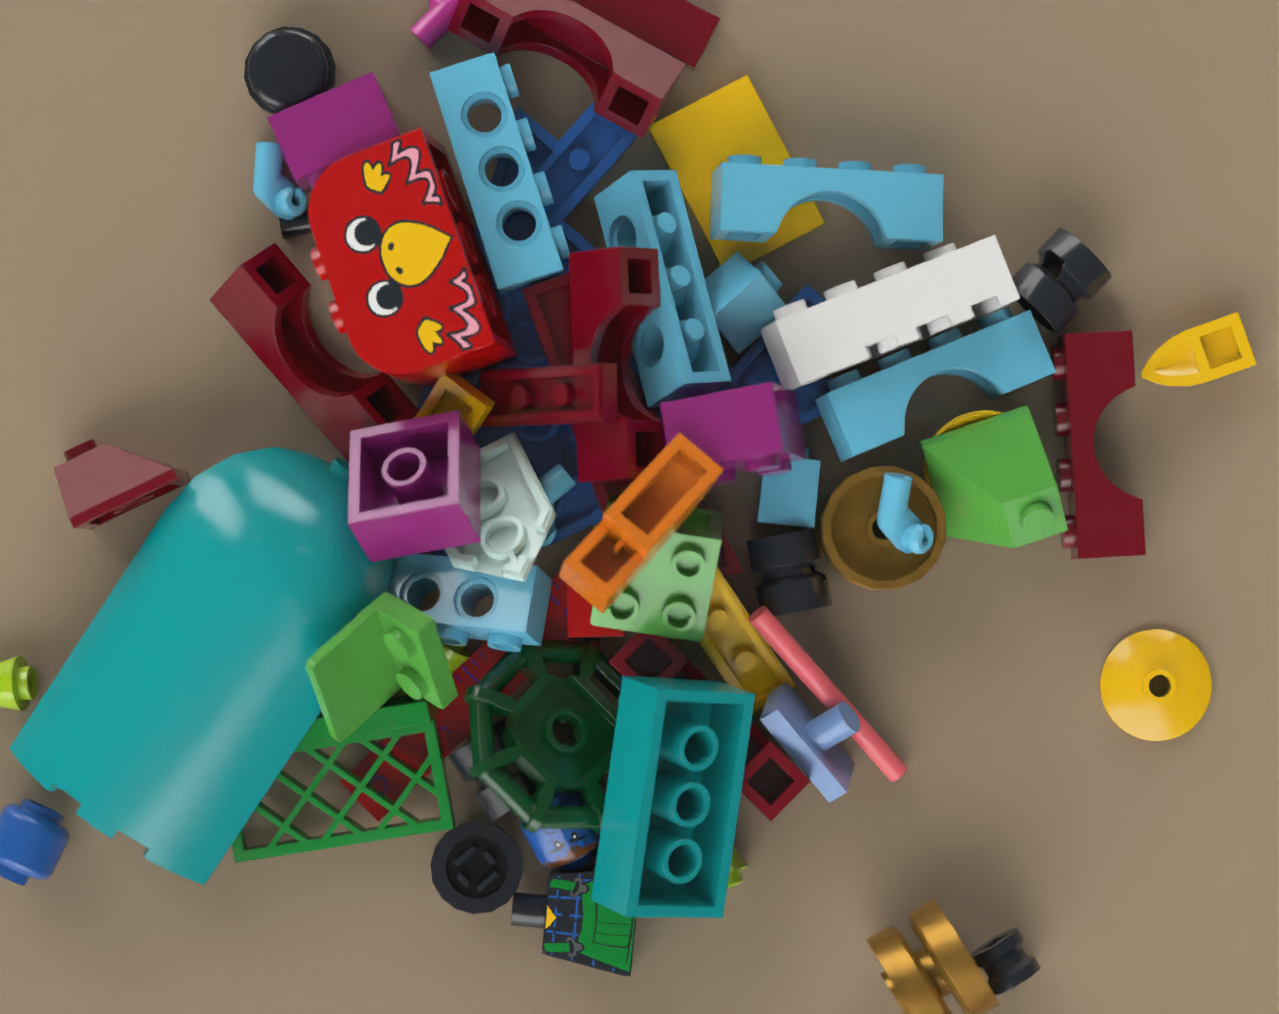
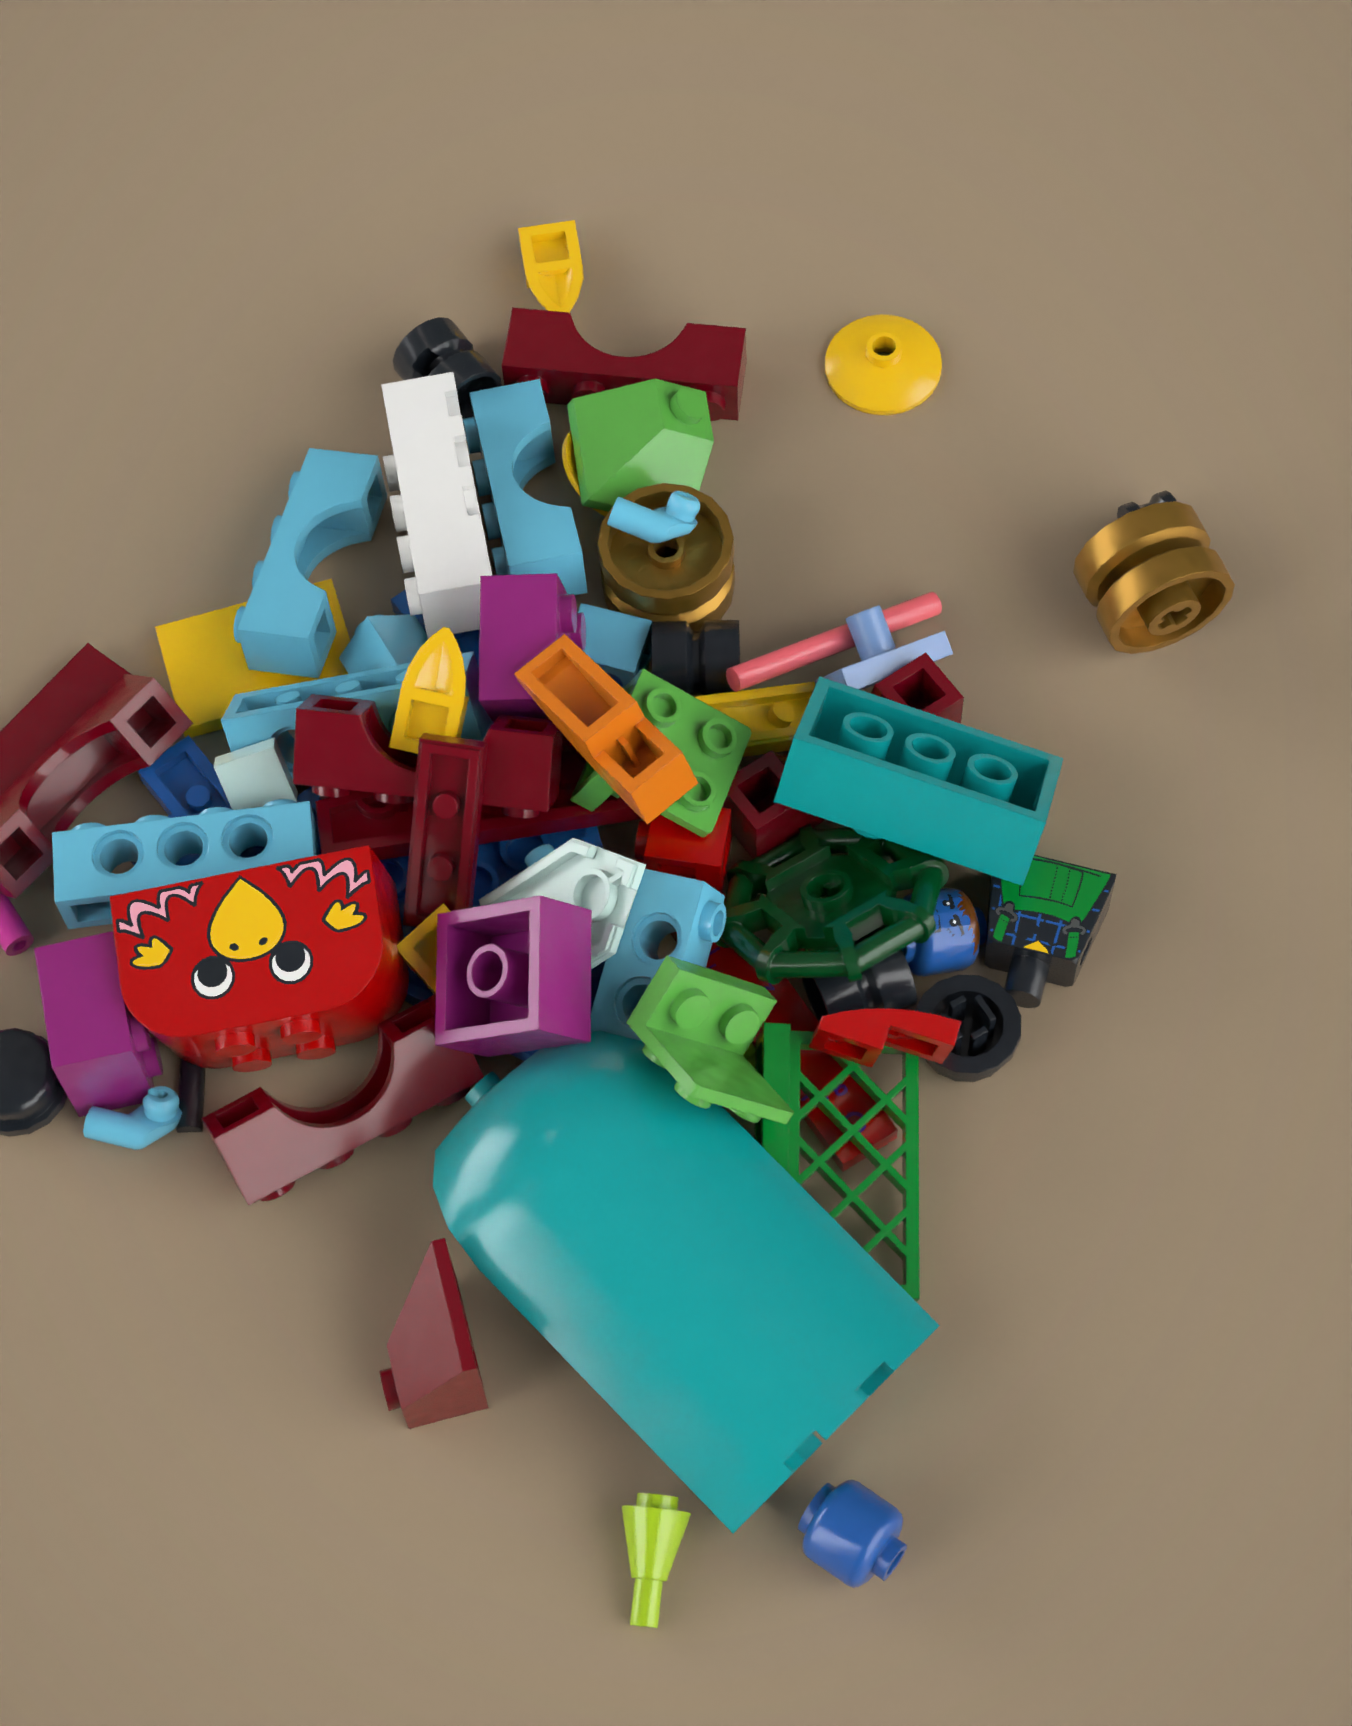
camera: 75 degrees left, 25 degrees down
(433, 790) = (865, 1032): none -> red slope
(592, 211) = (255, 775): none -> light aqua tile
(655, 361) = (431, 693): none -> yellow plate

